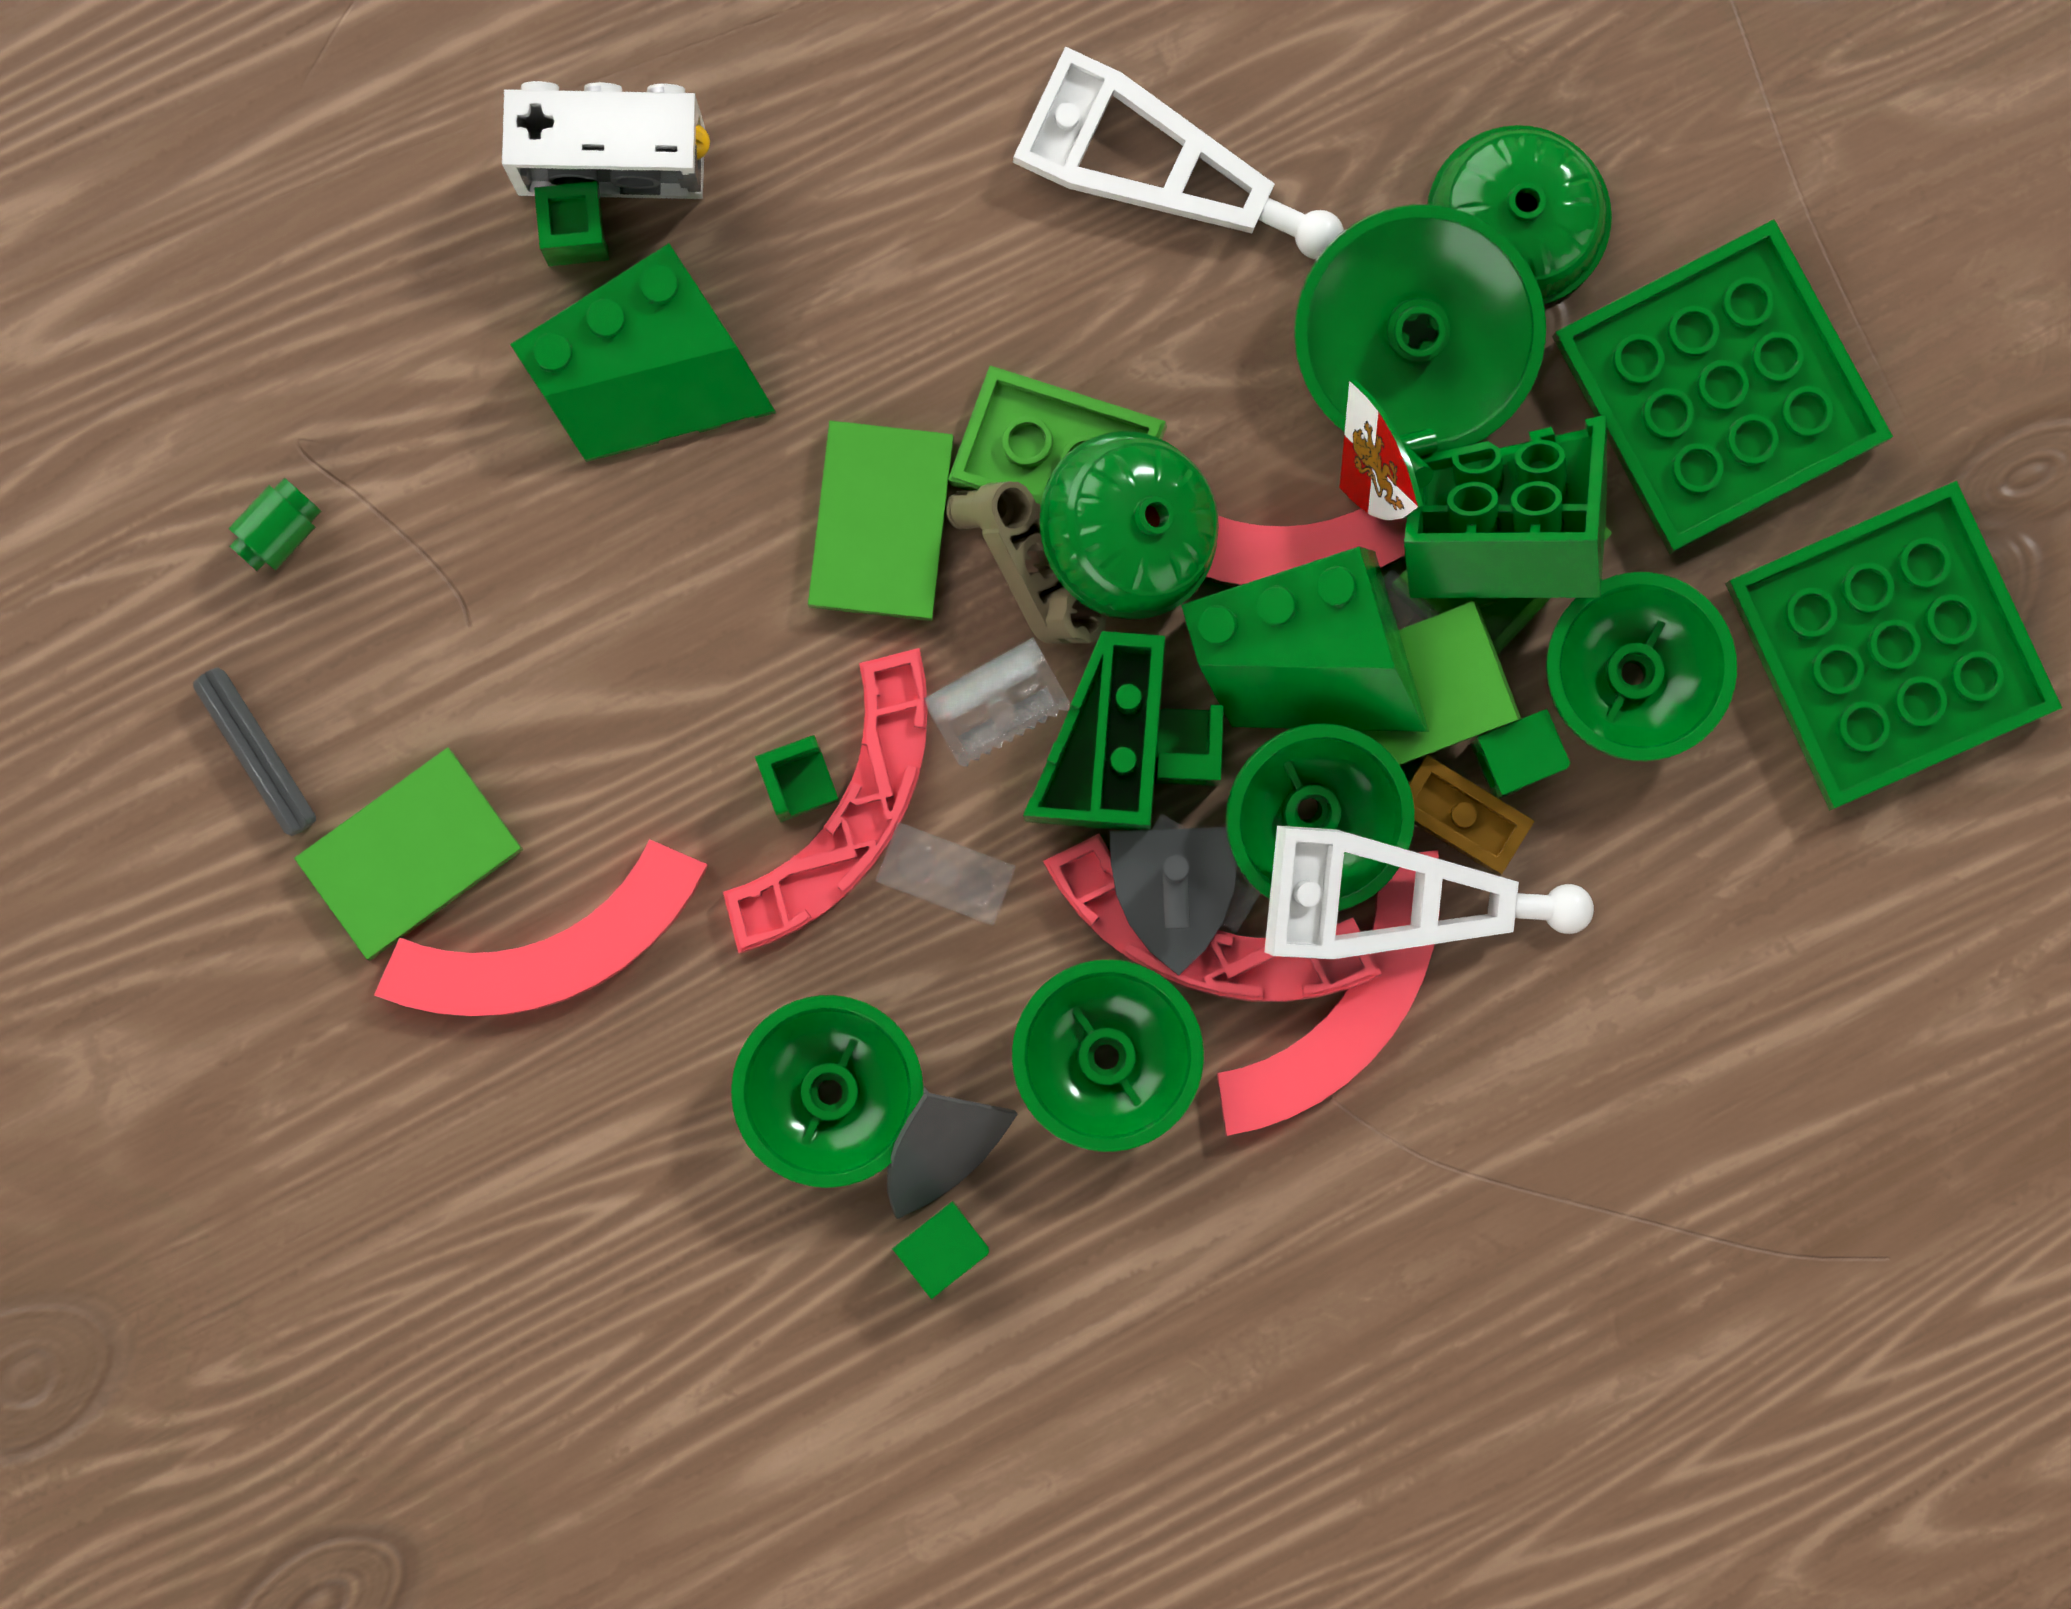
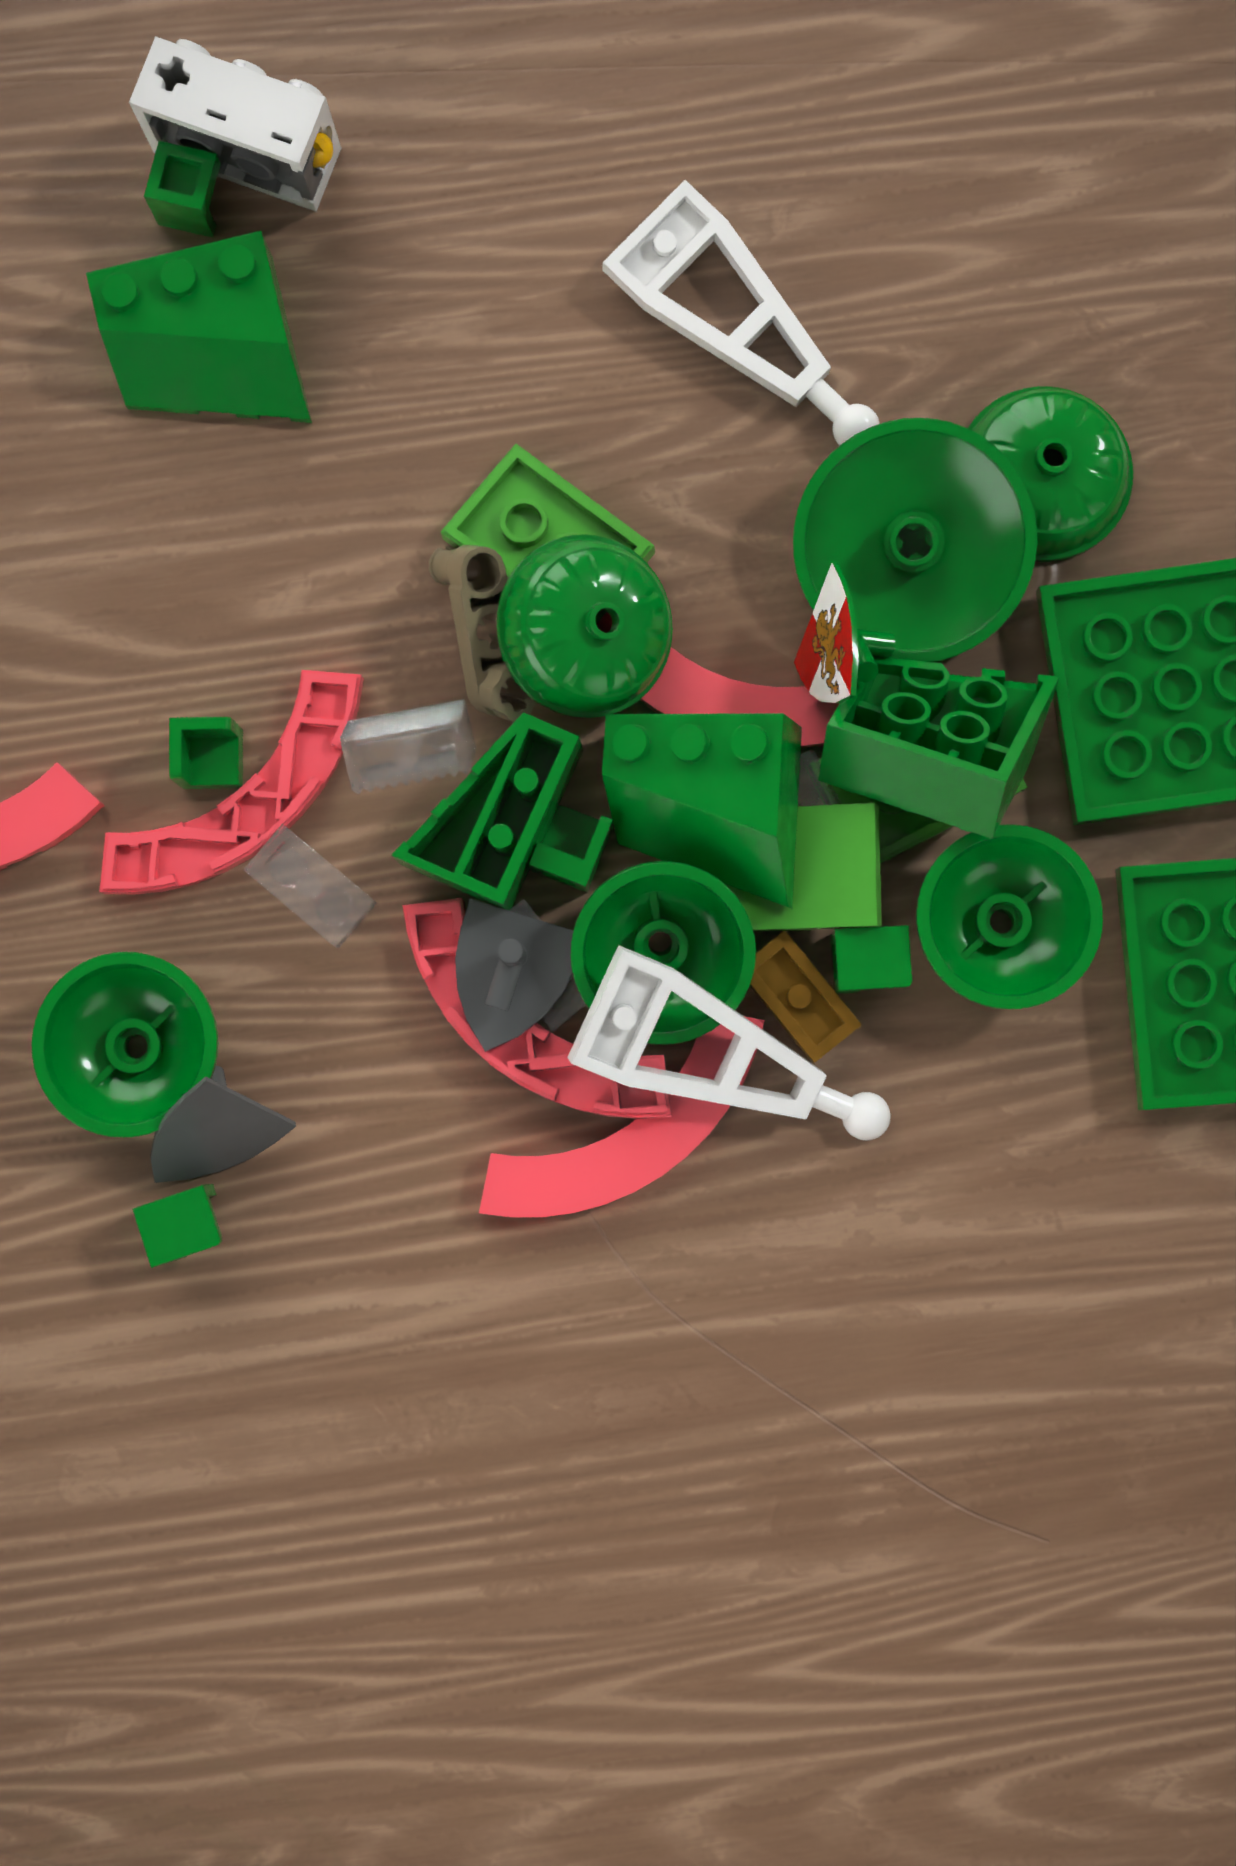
camera: 30 degrees right, 0 degrees up
(880, 520) = (368, 549): bright green tile -> none
(1116, 1007) = (347, 1093): green hat -> none

